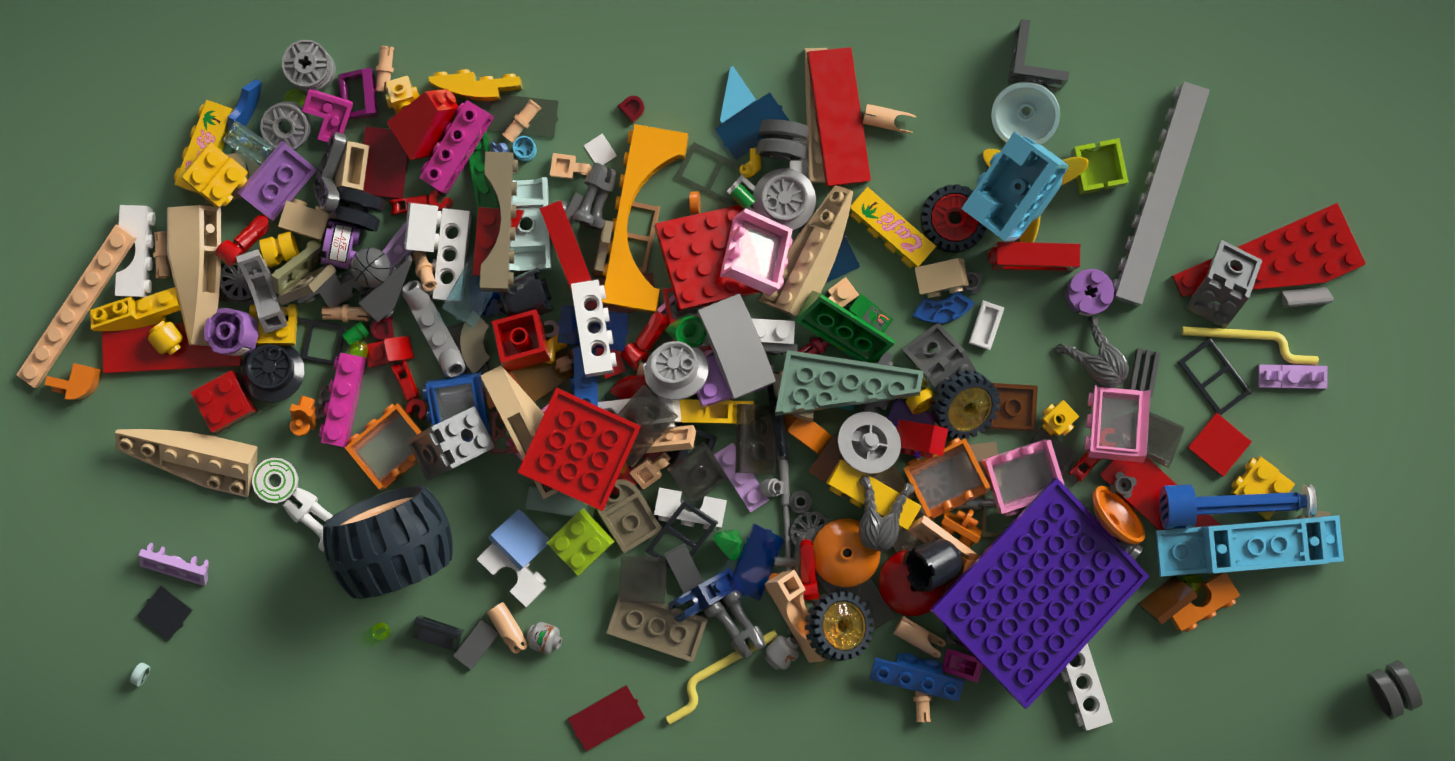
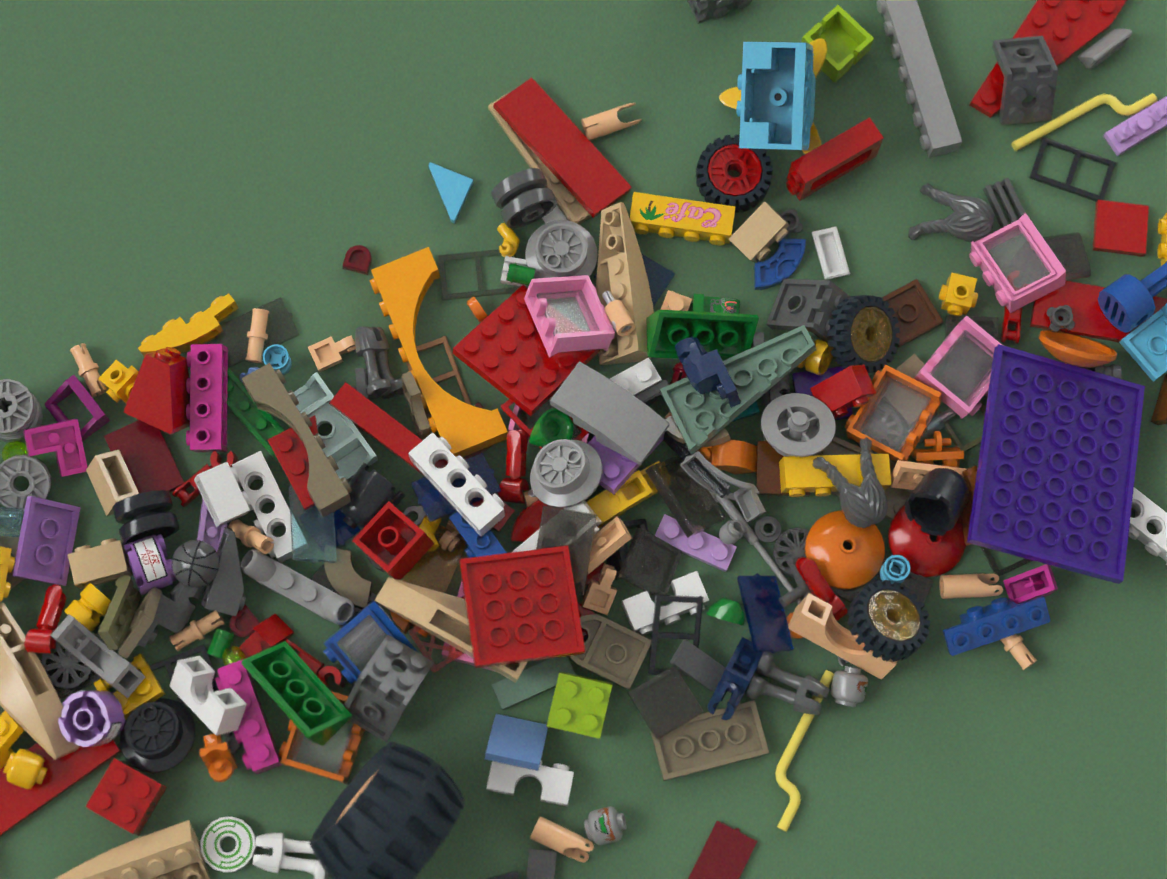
camera: 35 degrees left, 10 degrees down
(318, 352) = (218, 709): none -> white arch
(323, 185) = (95, 516): dark grey beam -> none
(385, 406) = (298, 692): none -> green slope
(600, 150) = (351, 318): white sticker -> none
(742, 130) = (479, 213): piece -> none
(791, 276) = (618, 315): none -> light nougat piece
(799, 467) = (746, 496): none -> light grey piece
(827, 359) = (706, 370): none -> dark blue plate
(867, 593) = (891, 572): none -> medium azure wheel
(1037, 124) = (732, 16): light aqua dish -> none
(1097, 282) = (907, 149): medium lavender brick -> none

